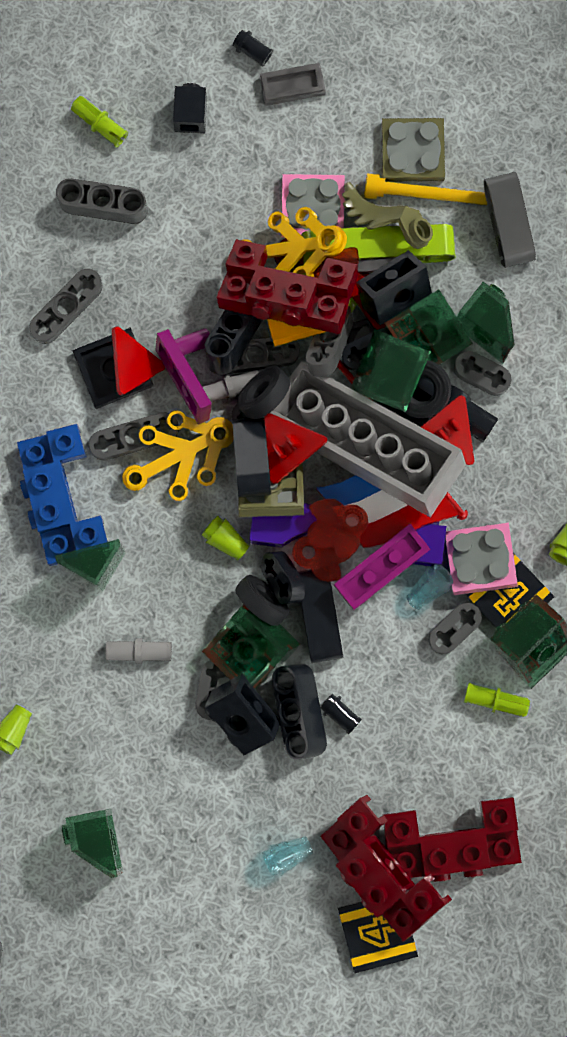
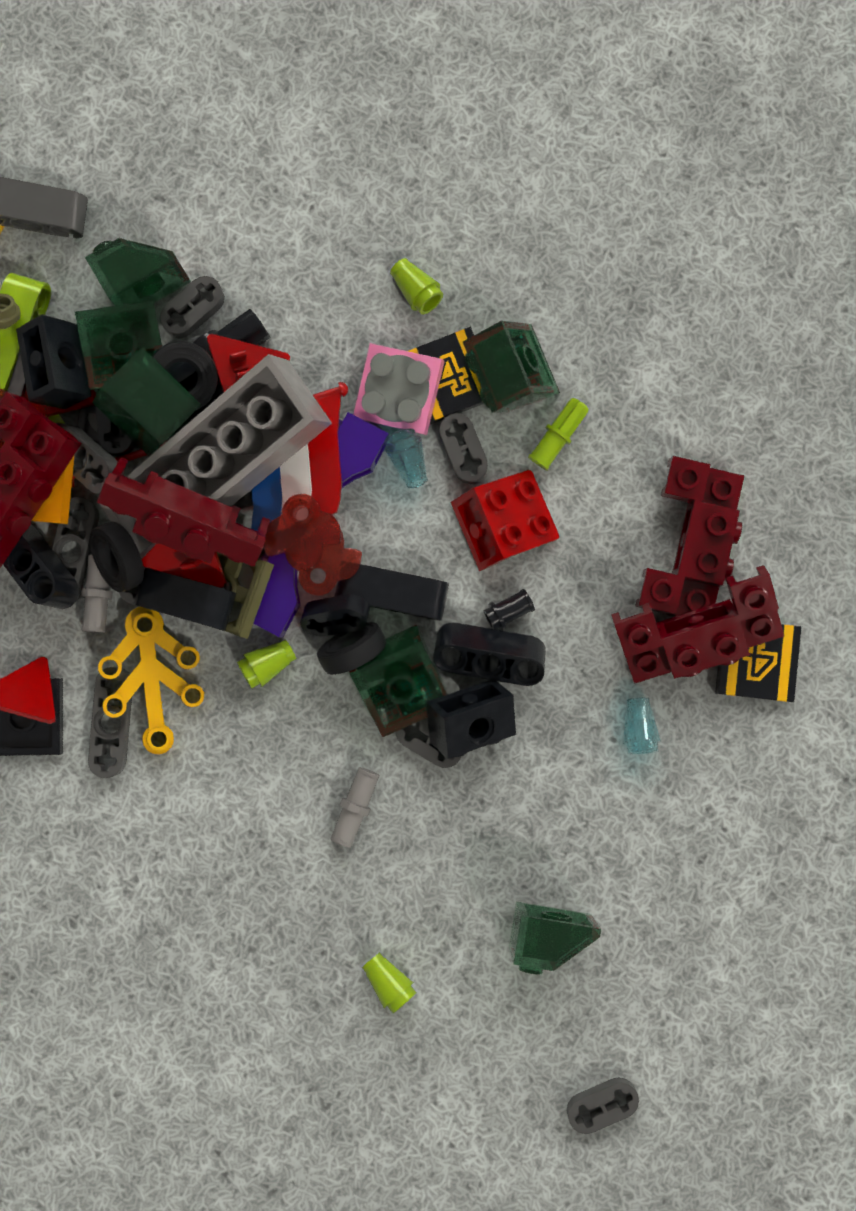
camera: 65 degrees left, 5 degrees up
(50, 494) = (144, 842): blue bracket -> none
(94, 563) = (237, 821): clear green slope -> none
(172, 354) = (36, 644): magenta piece -> none
(311, 434) = (182, 518): none -> dark red bracket
(381, 567) = (366, 500): magenta piece -> none
(411, 683) = (504, 518): none -> red bracket

